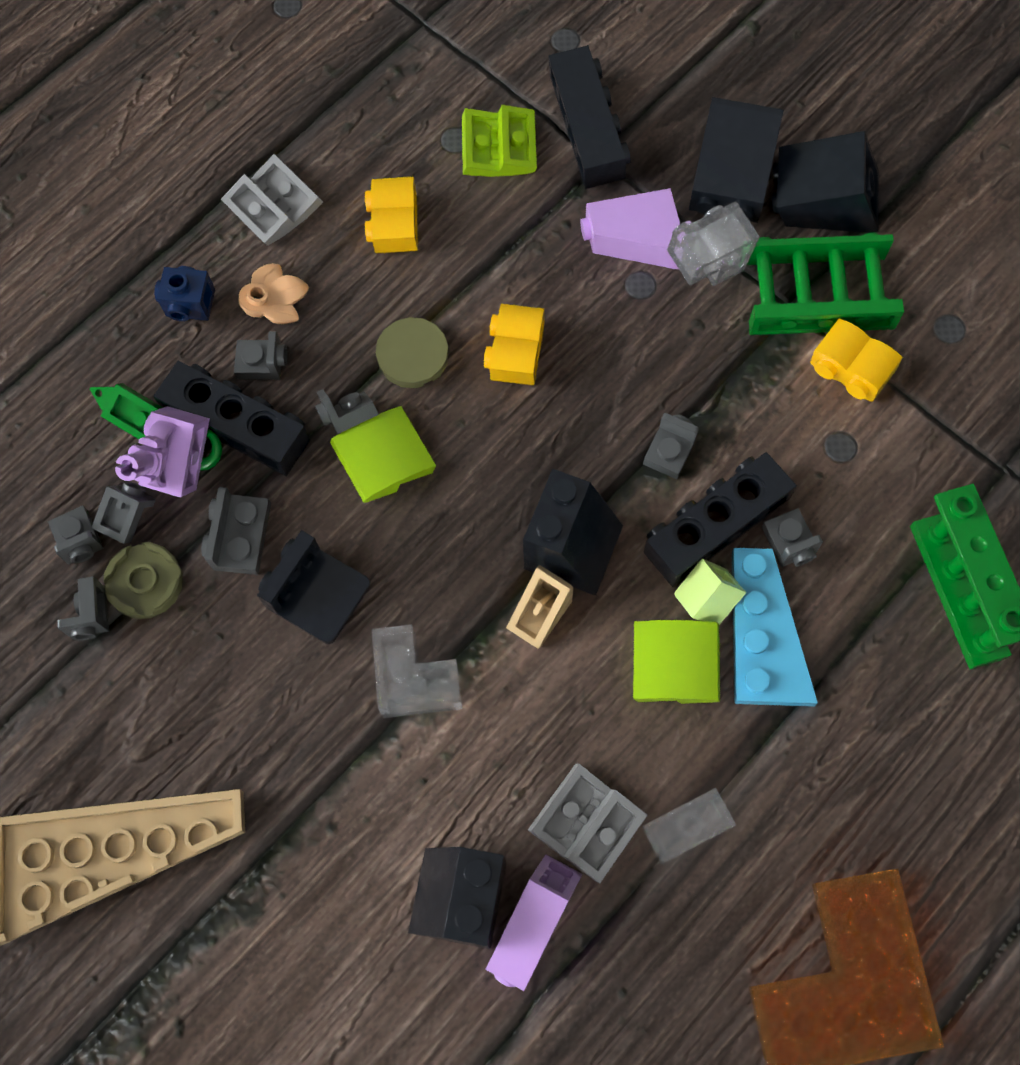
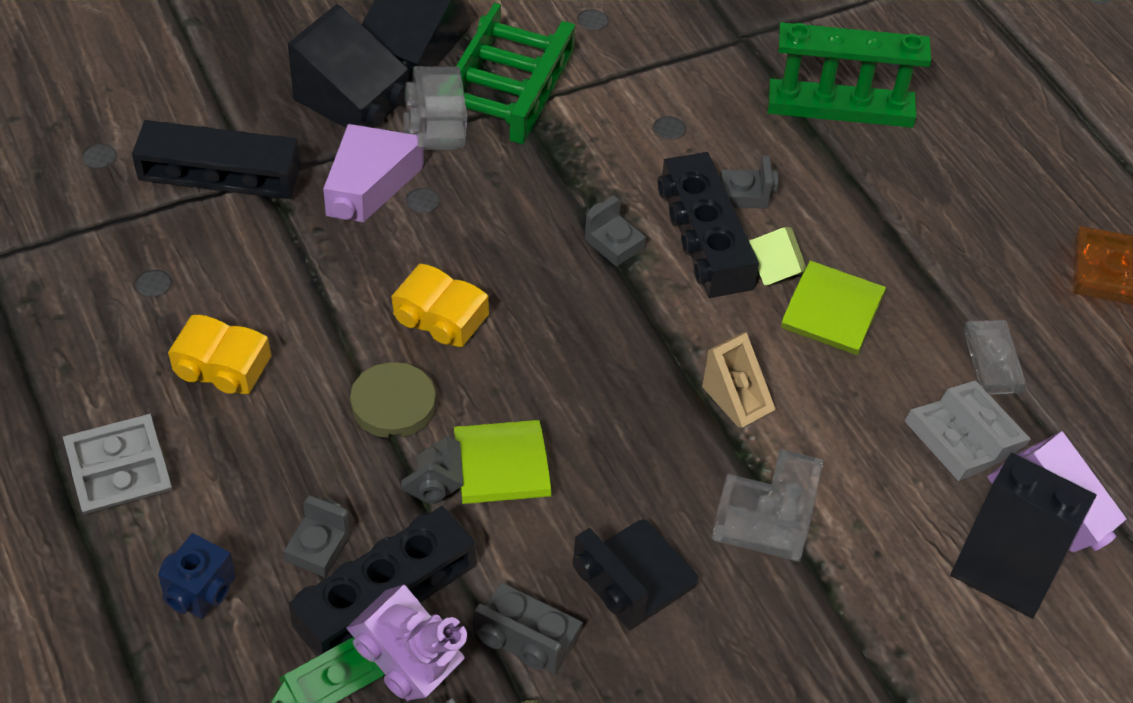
camera: 75 degrees left, 20 degrees down
(276, 295) = (243, 502): light nougat plate -> none
(499, 142) = (186, 245): lime slope -> none
(571, 532) = (672, 326): black slope -> none
(765, 639) = (838, 241): medium azure wing -> none
(855, 360) = (596, 79): yellow brick -> none

